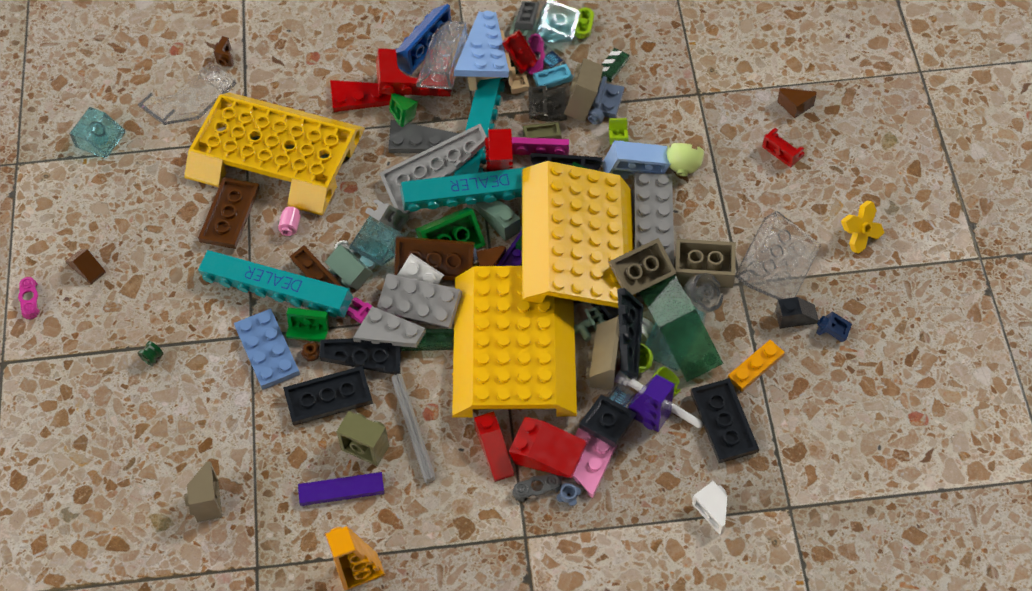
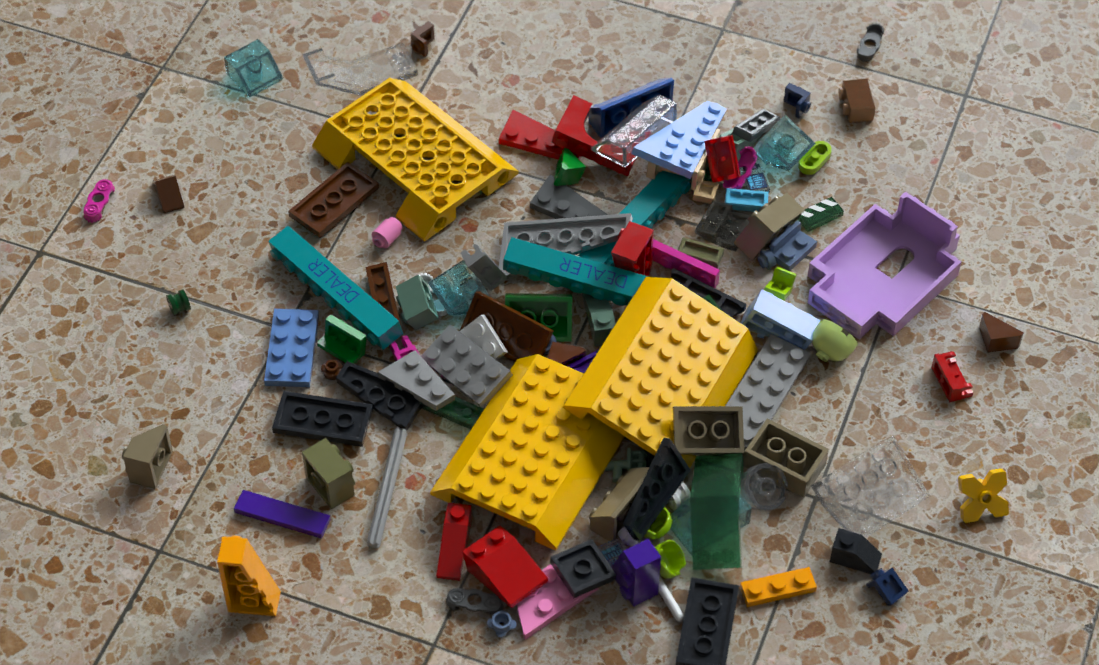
camera: 25 degrees right, 5 degrees down
(681, 114) = (860, 295): none -> lavender panel

